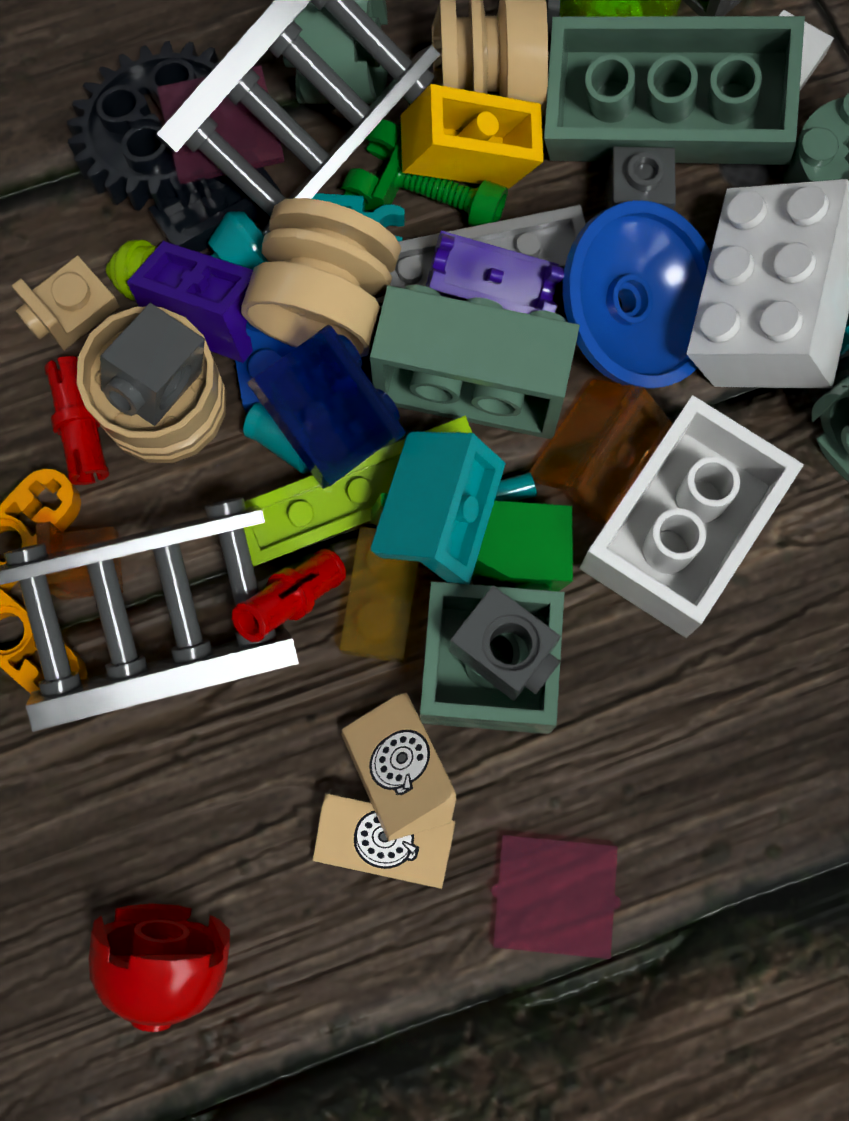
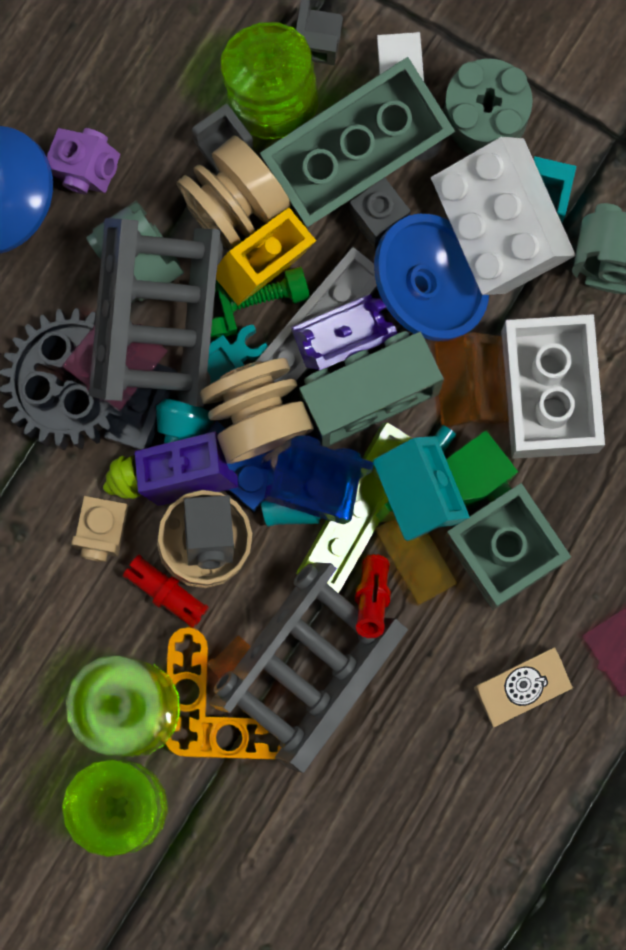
camera: 40 degrees left, 5 degrees up
(157, 964) = (460, 841): red cylinder -> none
(400, 769) = (504, 642): tan slope -> none
(501, 615) = (497, 543): dark grey brick -> none

